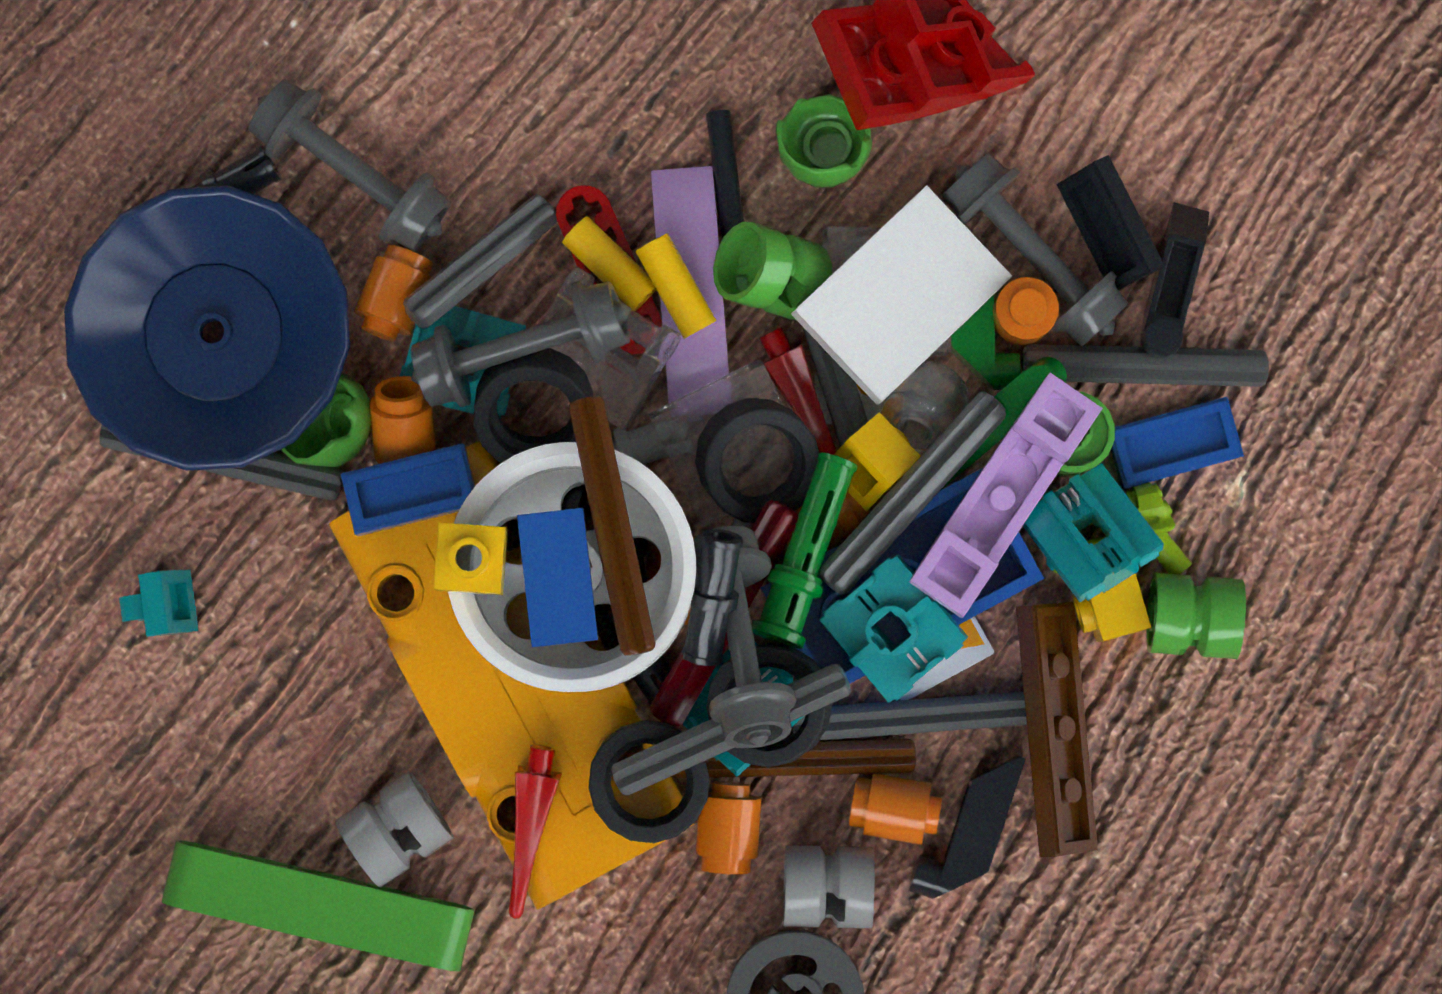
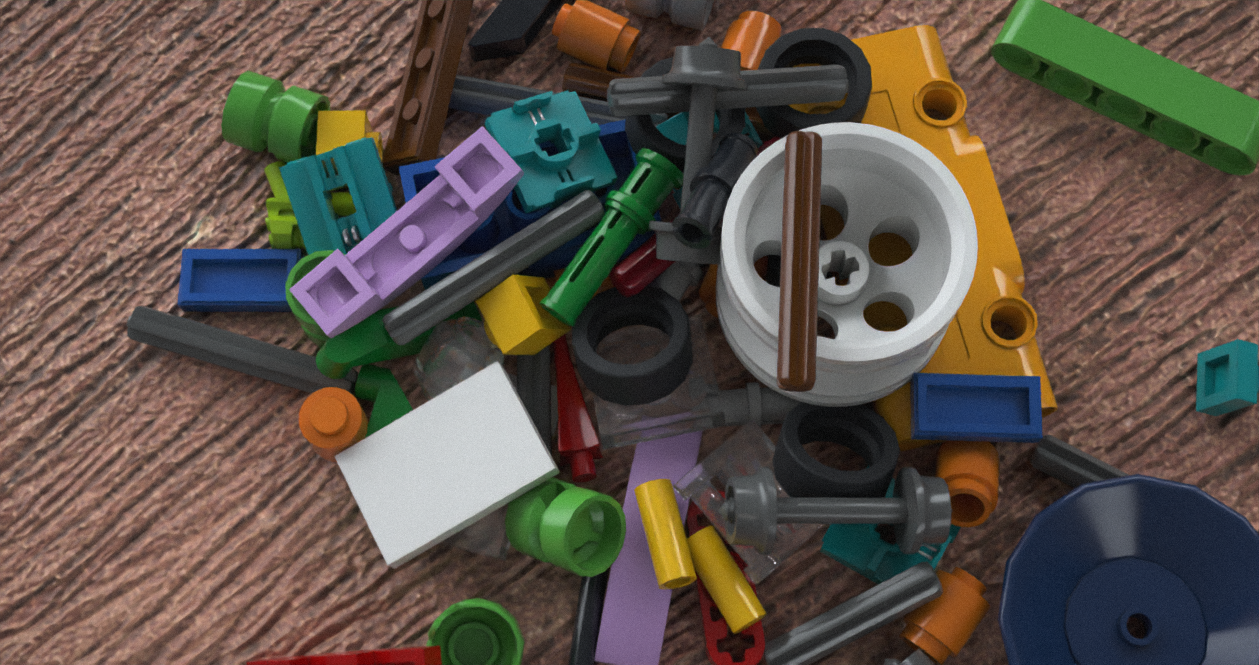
camera: 160 degrees left, 15 degrees down
(337, 431) = (1030, 489): bright green hair -> none
(372, 833) = (1062, 122): light grey wheel -> none
(491, 572) = (946, 278): yellow plate -> none
(533, 799) = (921, 101): red piece -> none
(557, 577) = (866, 226): blue tile -> none
(979, 190) = (338, 551): dark grey piece -> none
(1110, 223) = (225, 489): black tile -> none
(1174, 282) = (186, 420): black piece -> none

